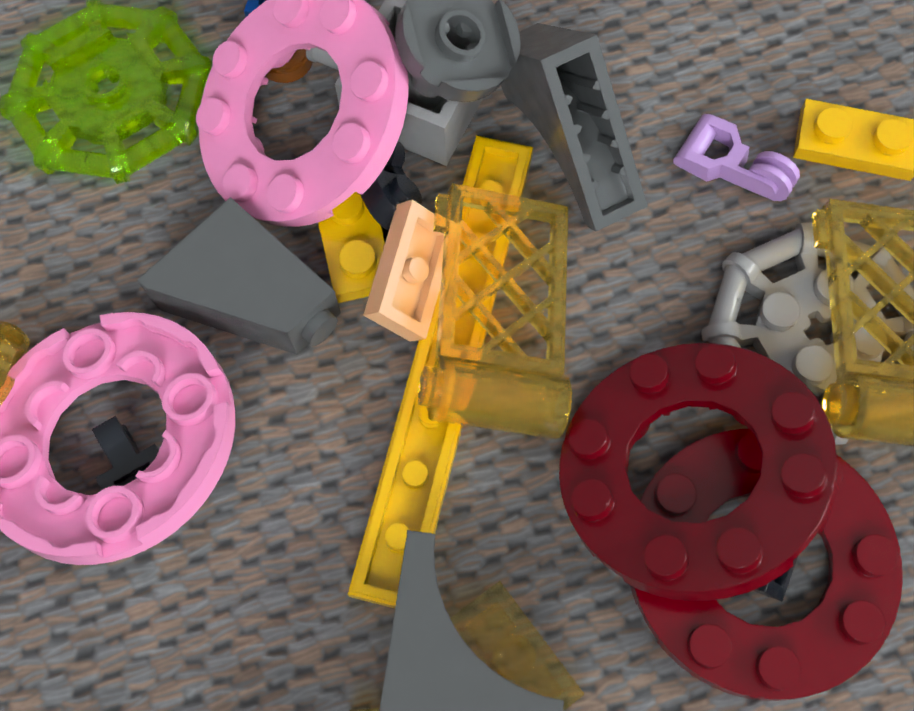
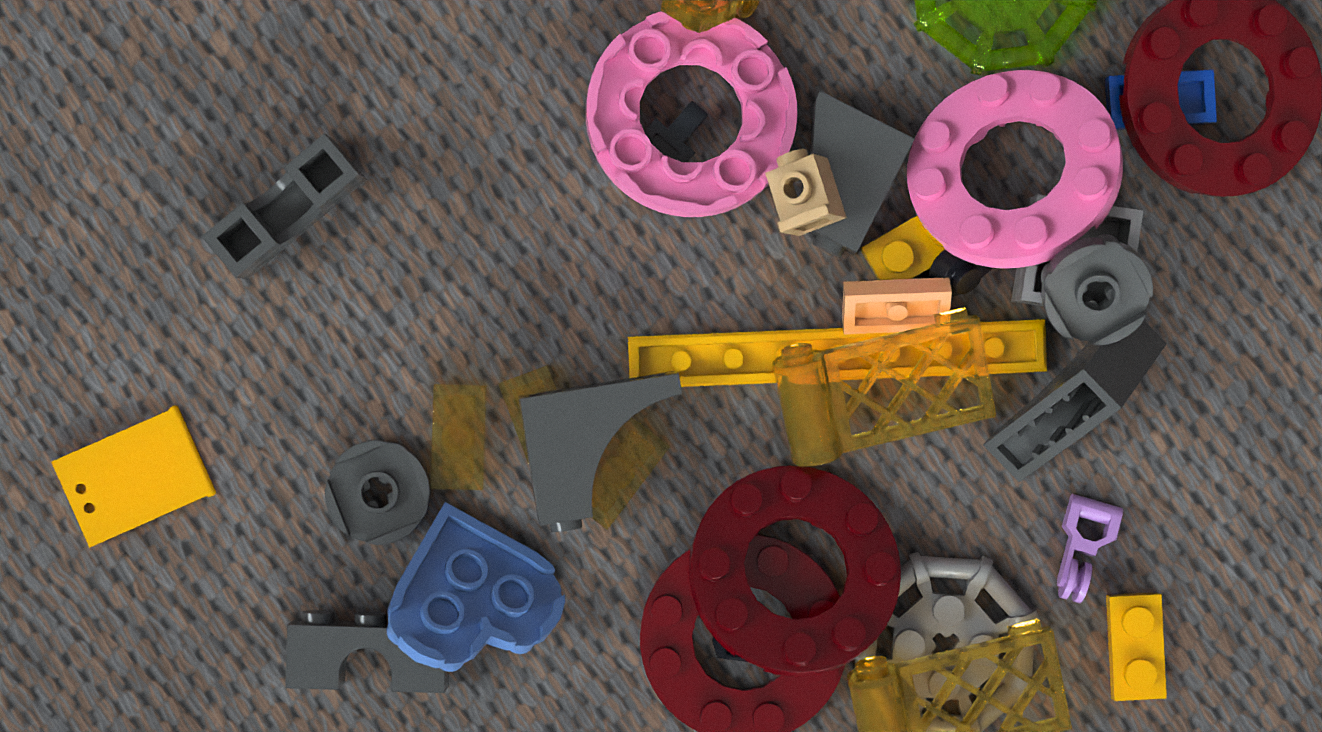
camera: 70 degrees right, 20 degrees up
(260, 313) = (820, 198): none -> tan brick

